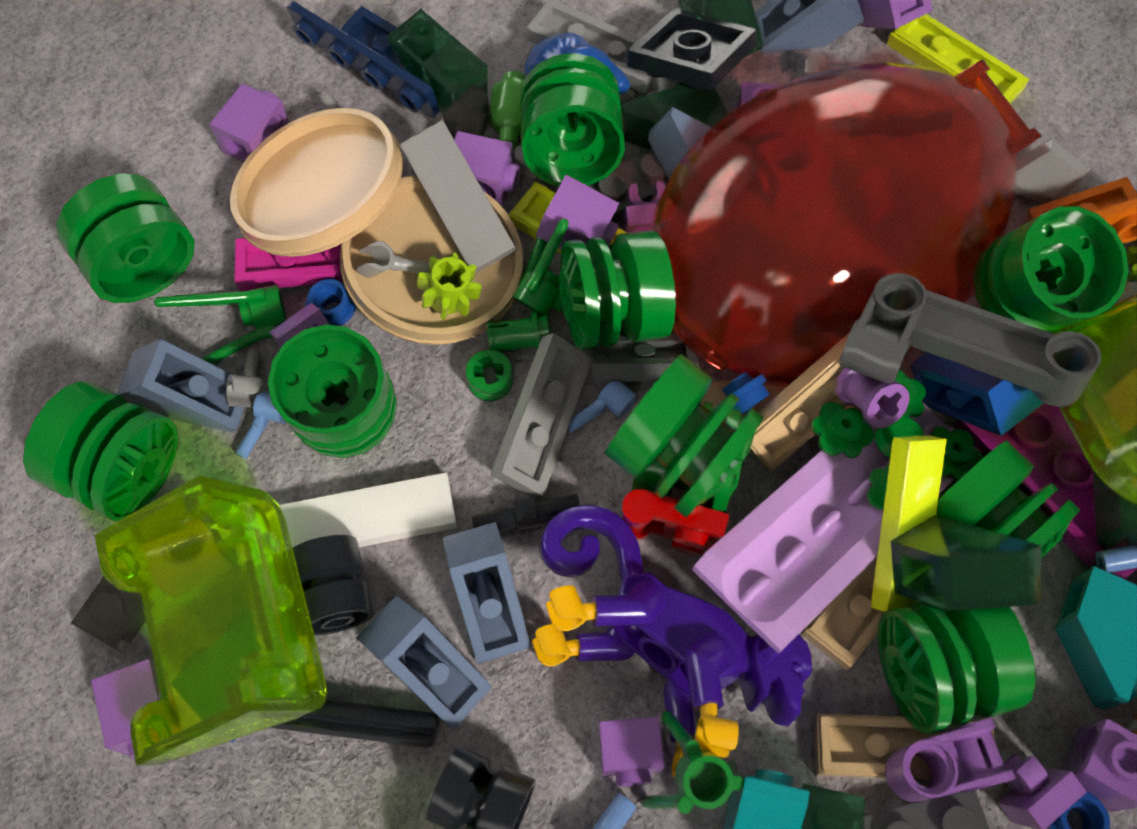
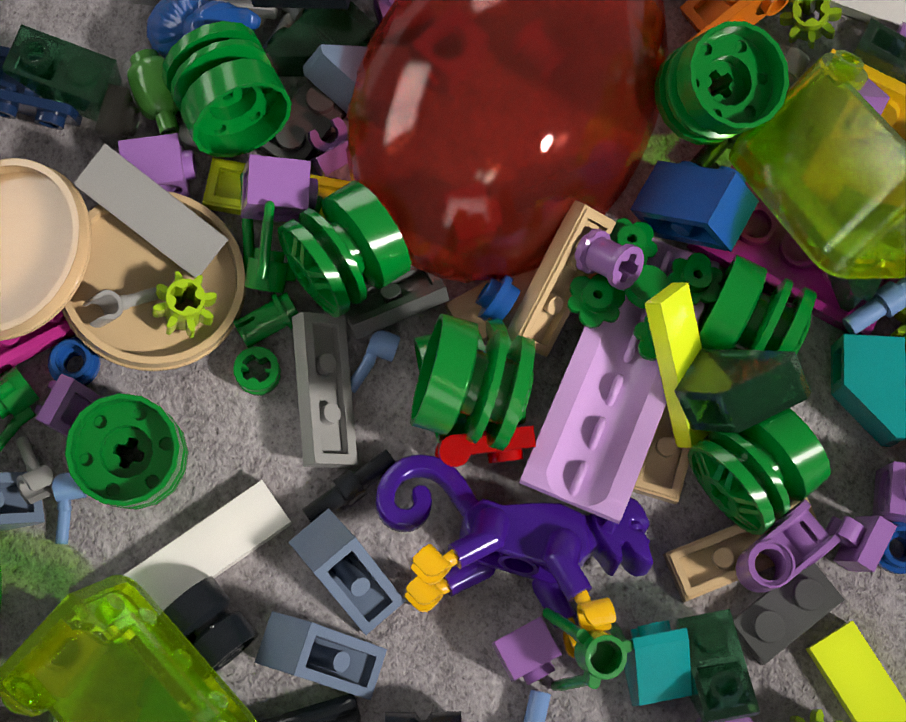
camera: 30 degrees left, 10 degrees up
(908, 315) = (669, 183): dark grey piece -> none

